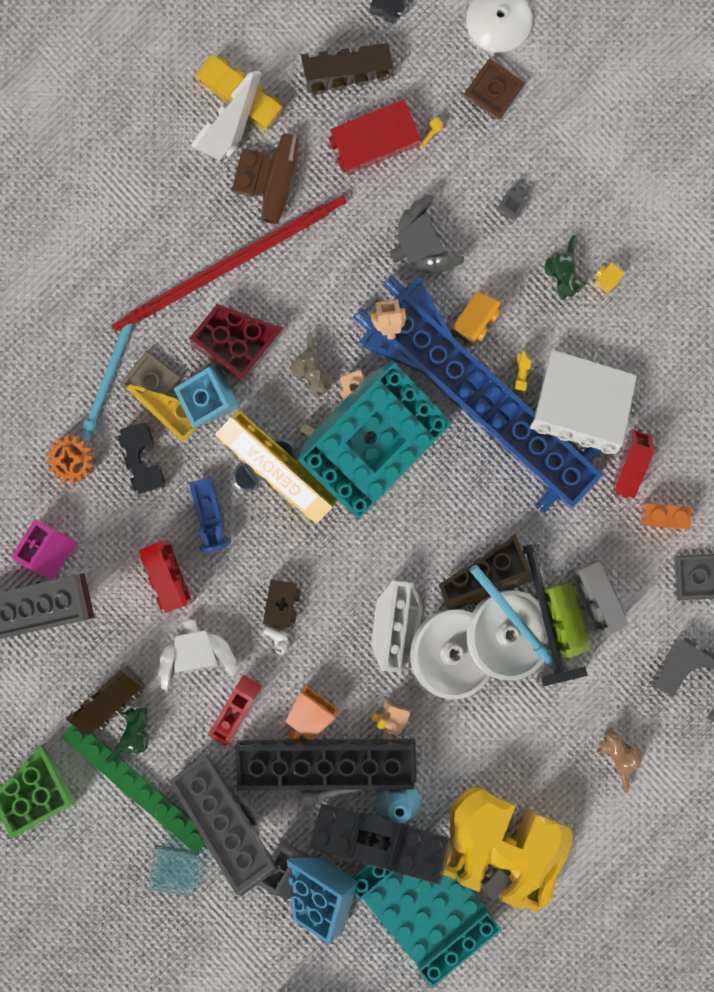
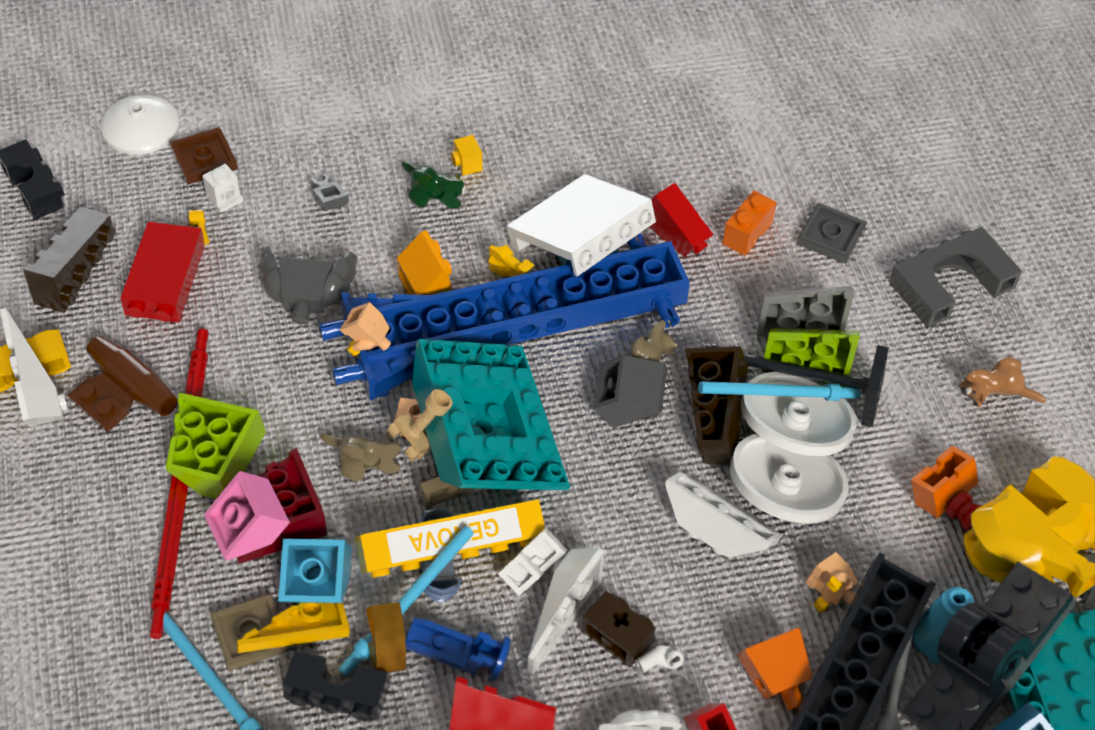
camera: 60 degrees left, 35 degrees down
(179, 458) = (361, 647): none -> medium azure bar
(185, 471) = (388, 637): none -> pearl gold slope
(205, 337) = (246, 516): none -> bright pink slope
(256, 270) = (212, 443): none -> lime wedge
(289, 558) = (570, 588): none -> white wedge
(296, 524) = (532, 561): none -> white slope
(331, 401) = (437, 405): none -> tan bar
(460, 514) = (629, 389): none -> dark grey slope
(470, 126) = (222, 188): none -> white brick
(498, 779) = (961, 508): none -> red wheel
(499, 508) = (654, 344): none -> dark tan animal
(511, 756) = (941, 483): none -> orange brick

